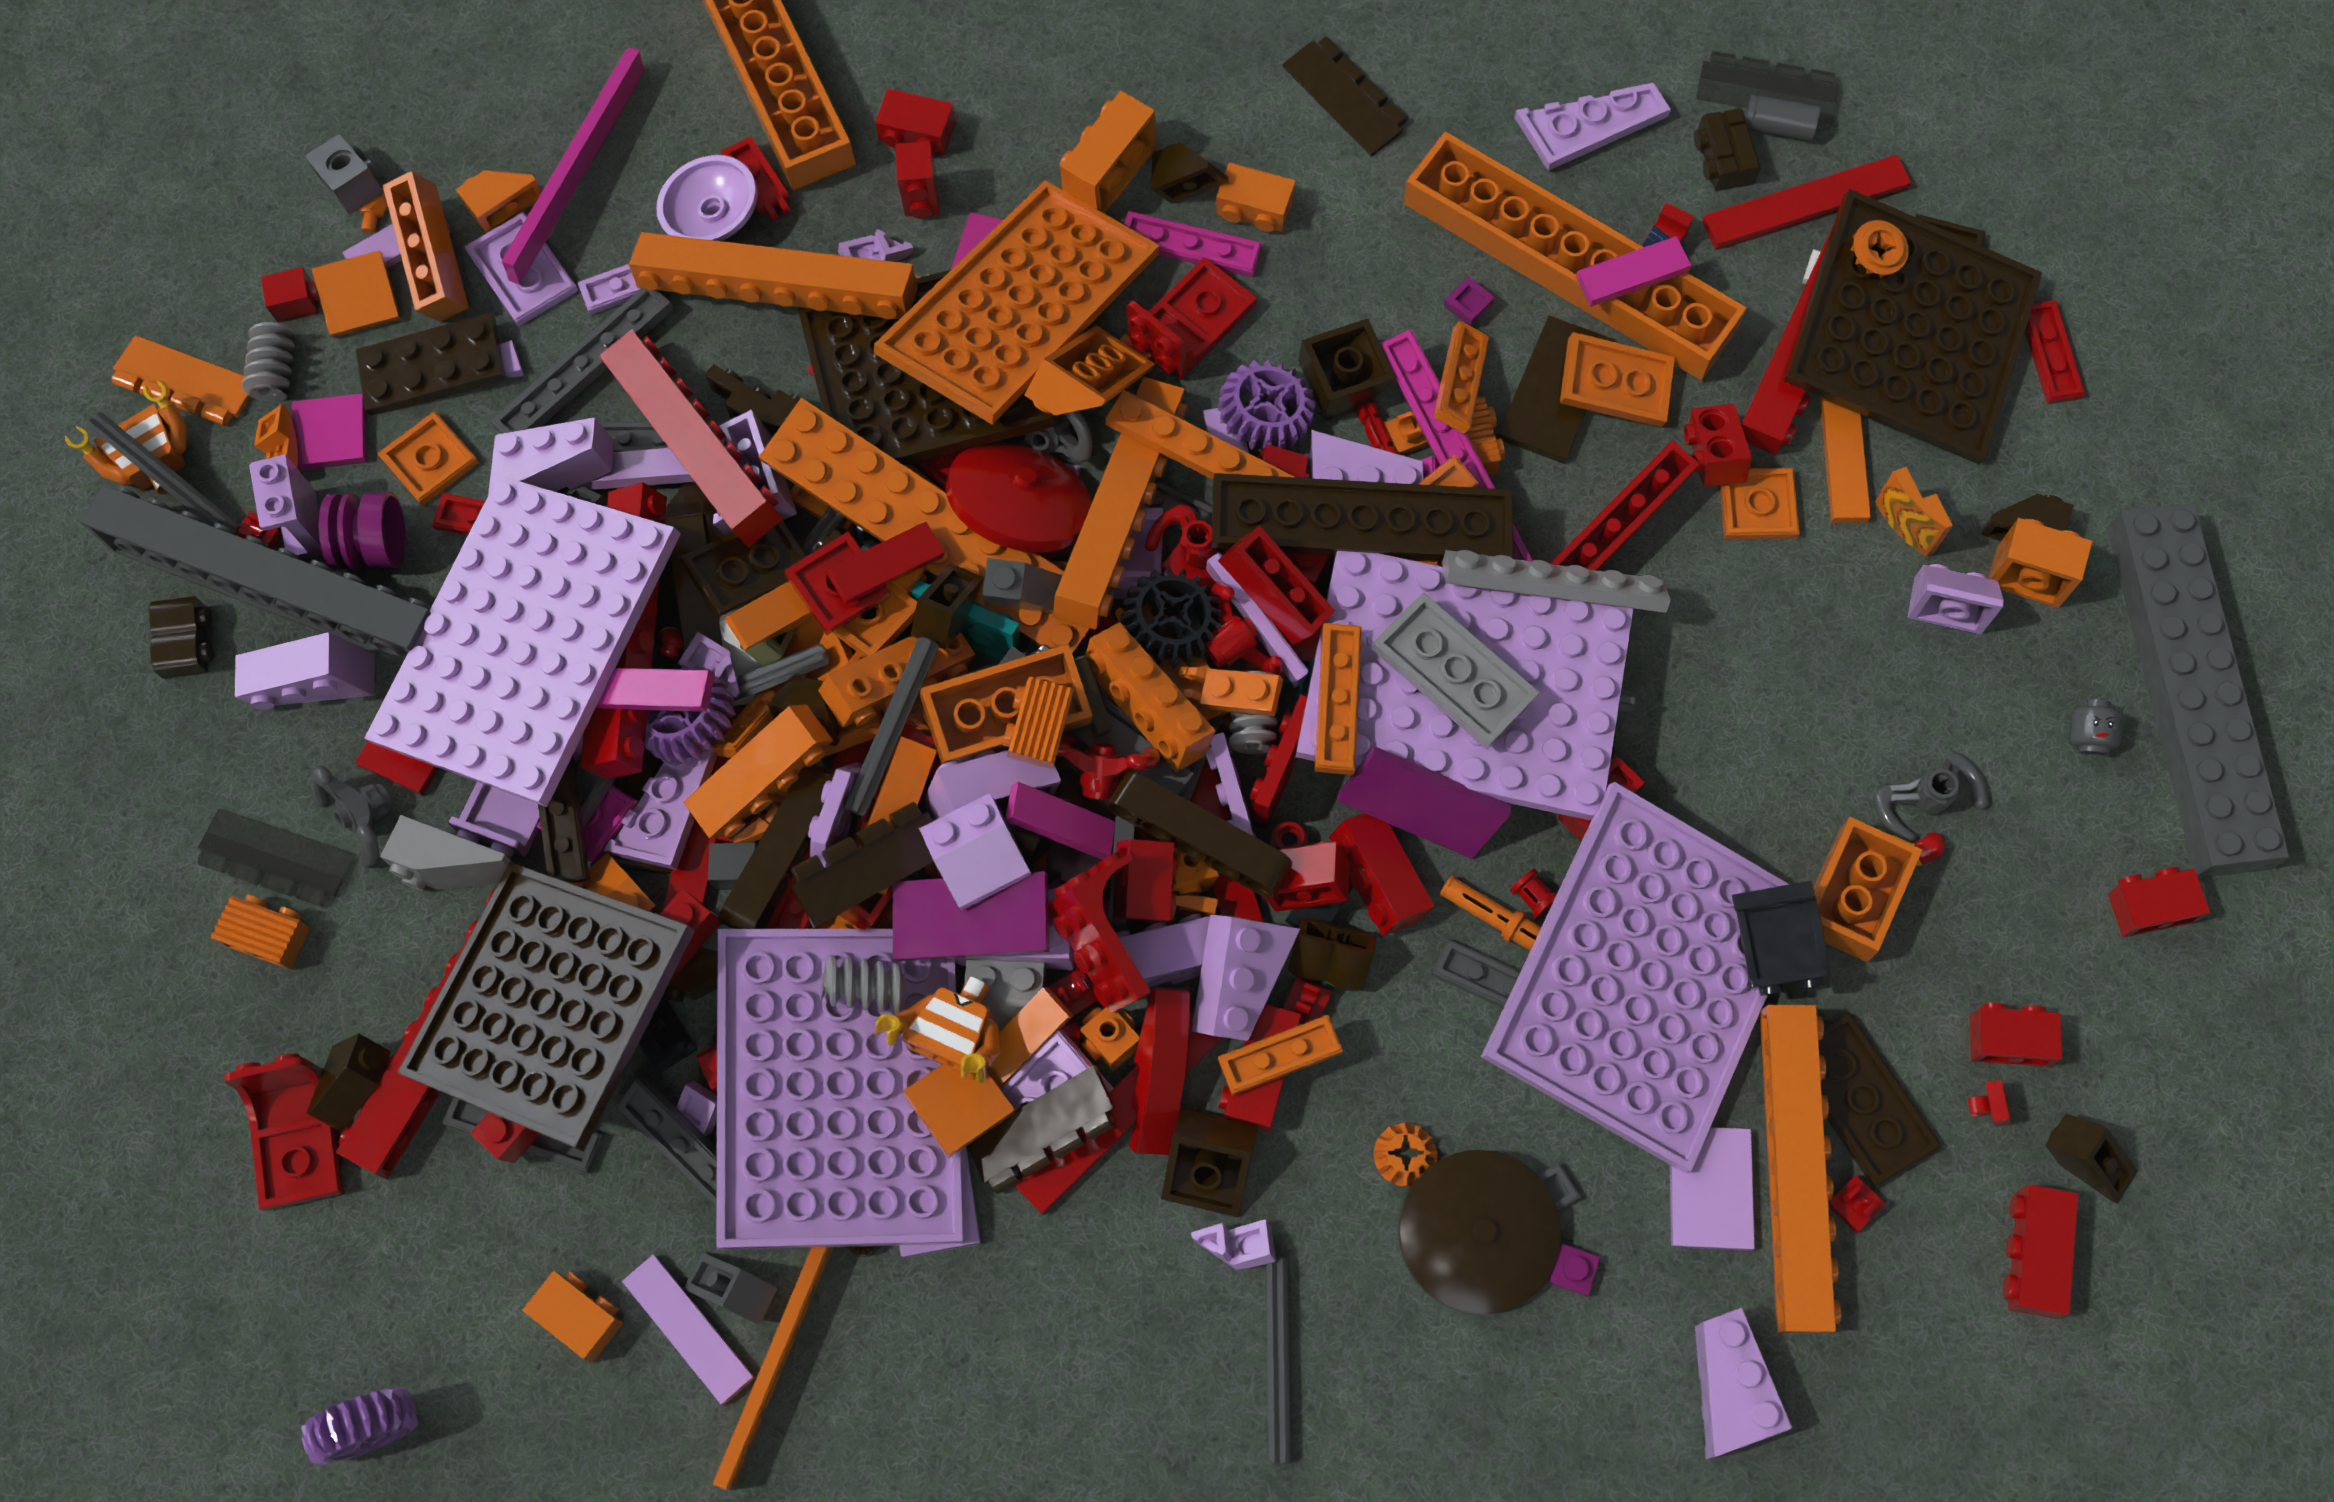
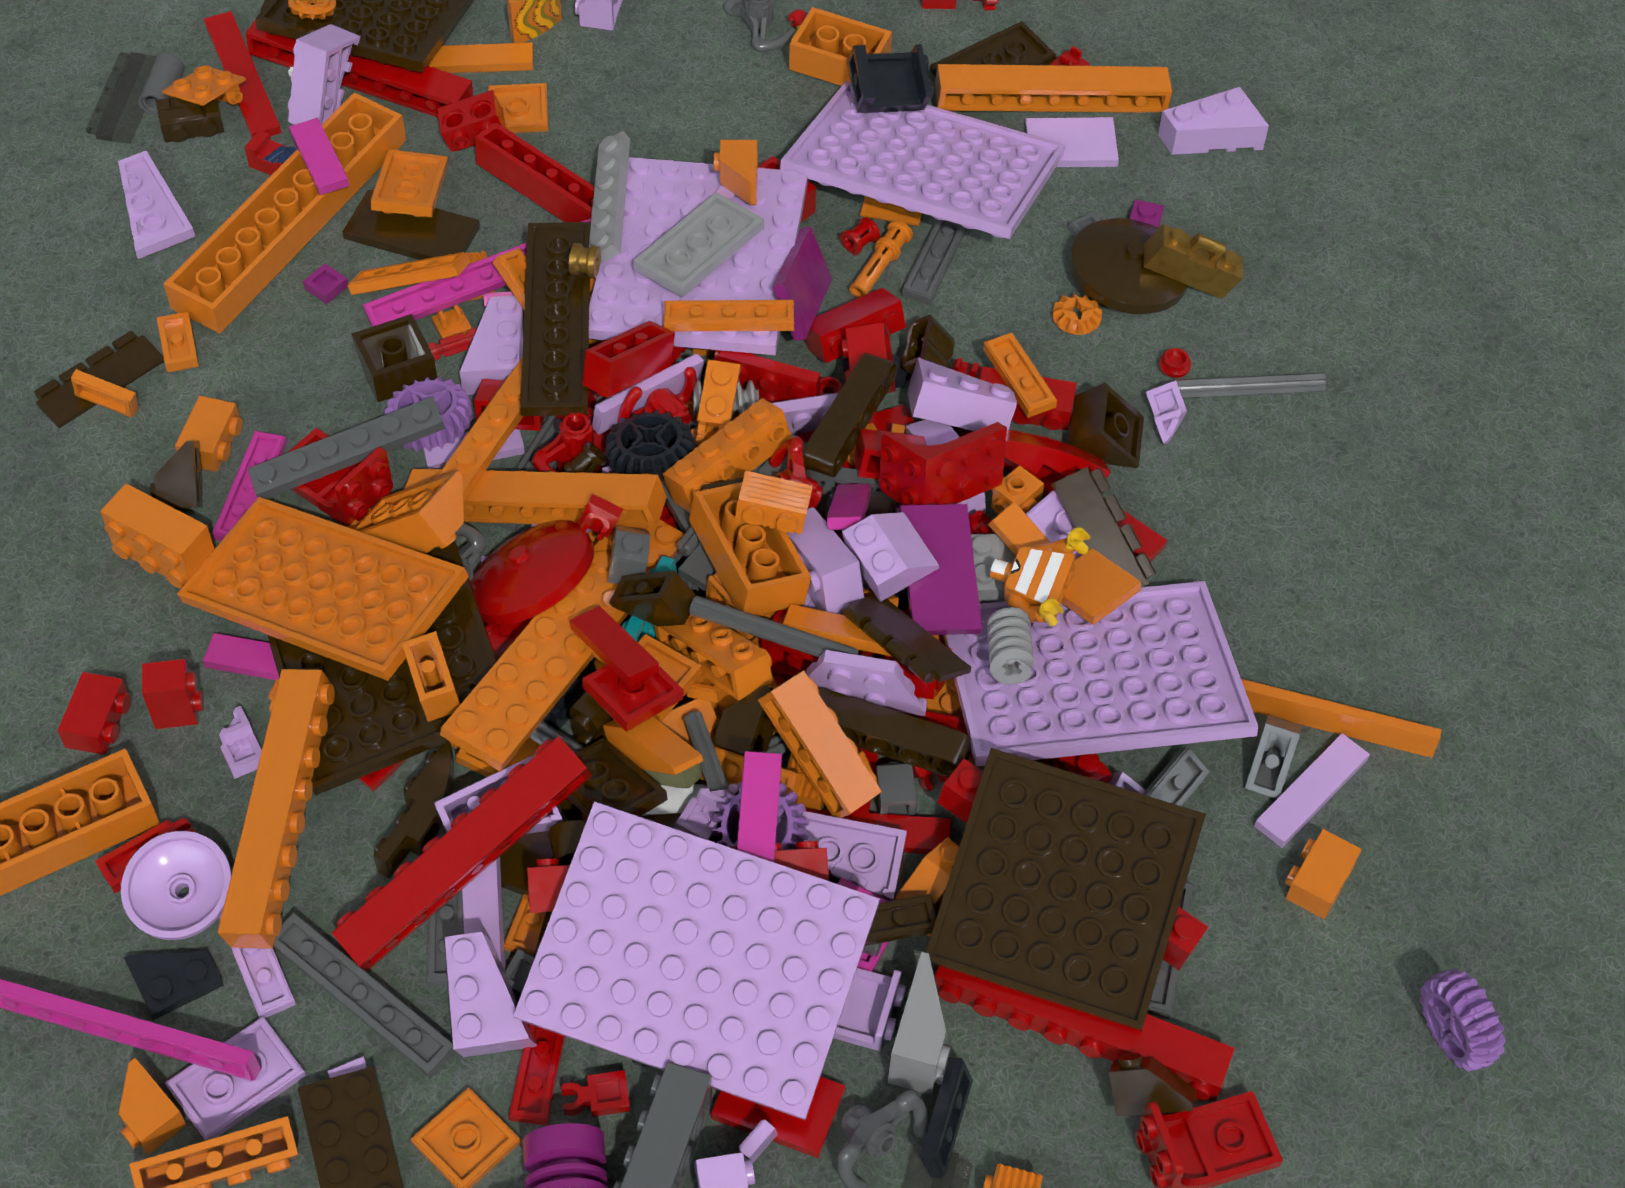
camera: 100 degrees left, 15 degrees down
(361, 698) = (758, 1140): none -> lavender tile
(361, 880) = (946, 1118): none -> black tile
(439, 568) = (604, 1094): none -> red plate
(627, 210) = (173, 979): none -> black wing
(871, 391) = (431, 676): none -> orange brick
(1060, 553) = (599, 516): none -> red tile
(1163, 548) = (587, 460): none -> dark brown bush
(1210, 323) = (346, 448): none -> dark grey plate
(1311, 96) = (104, 393): none -> orange tile
(1317, 1268) = (1175, 363): none -> red plate
(1386, 161) = (177, 342): none -> orange plate
(1430, 541) = (584, 260): none -> pearl gold wheel
(1463, 1306) = (1193, 260): none -> pearl gold piece
(1585, 726) = (738, 168): none -> orange slope
(1765, 157) = (206, 85): none -> orange hinge
(1772, 266) = (318, 73): none -> lavender wedge

